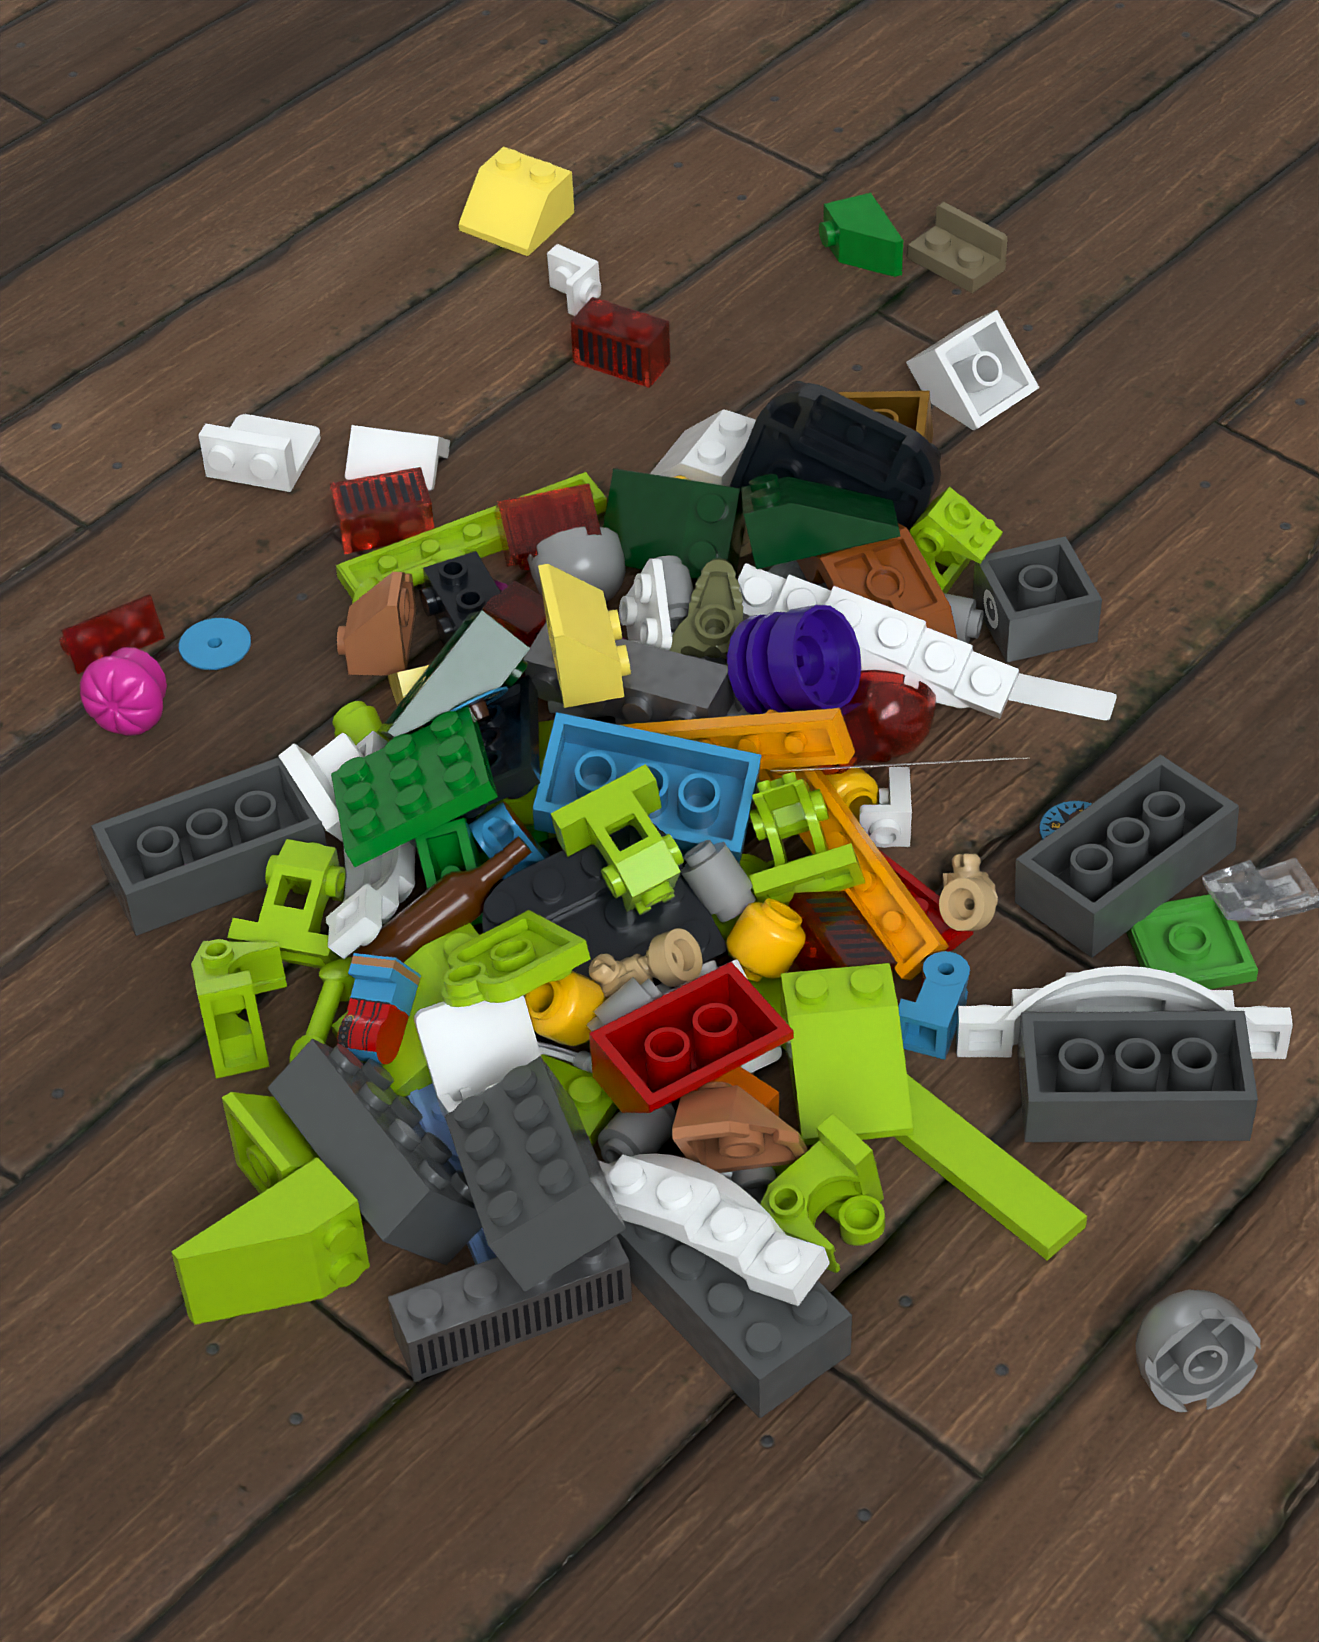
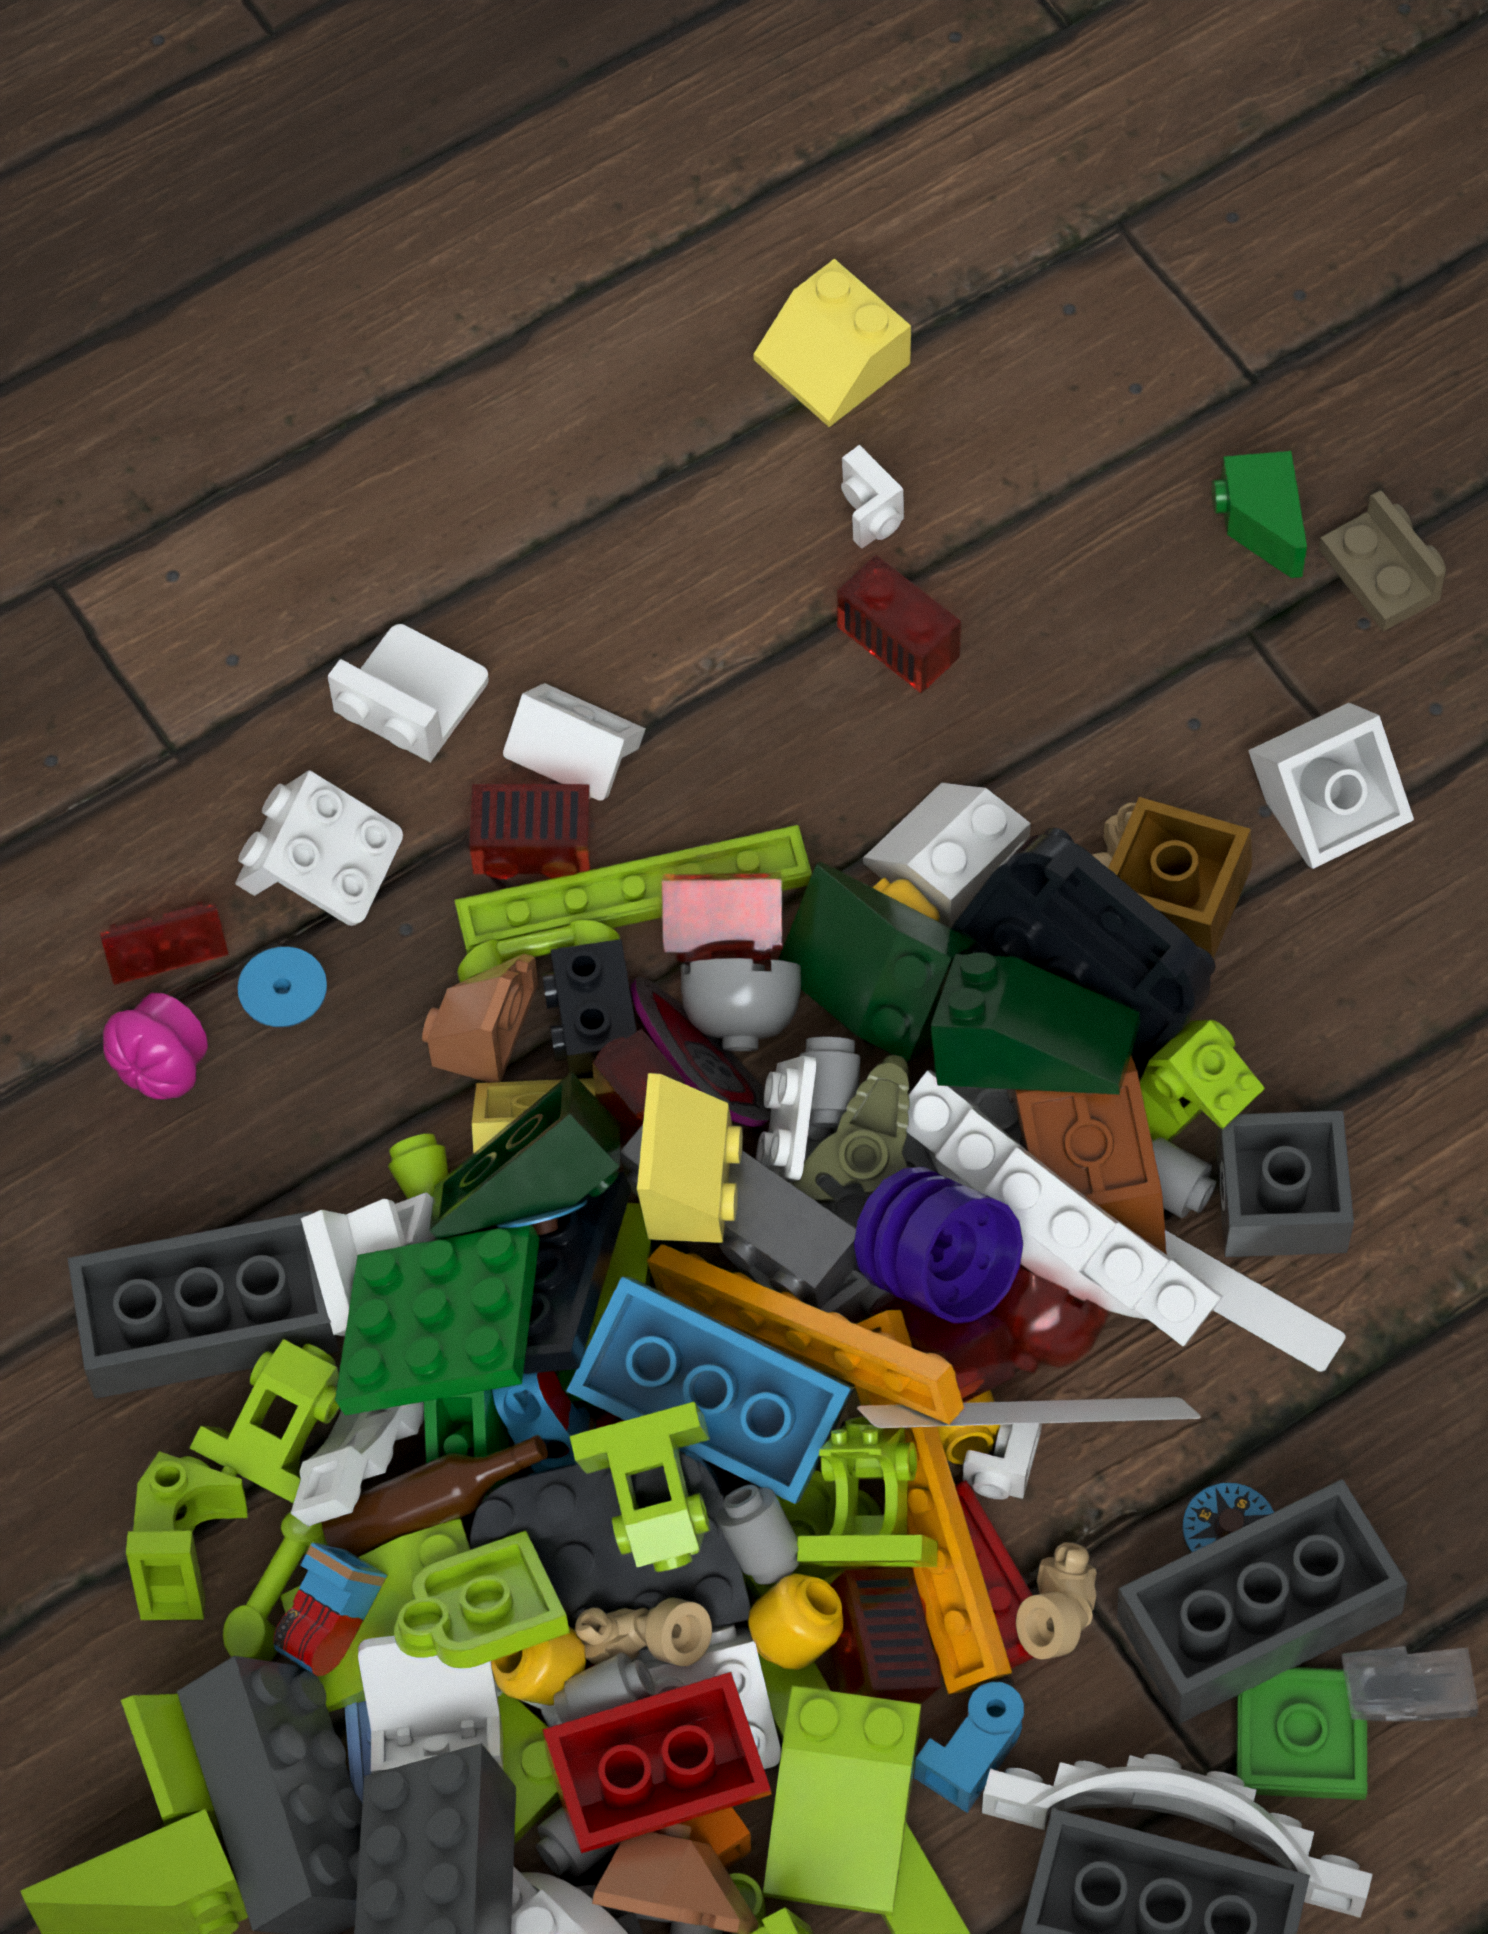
camera: 15 degrees right, 15 degrees up
(221, 548) = (320, 848): none -> white bracket

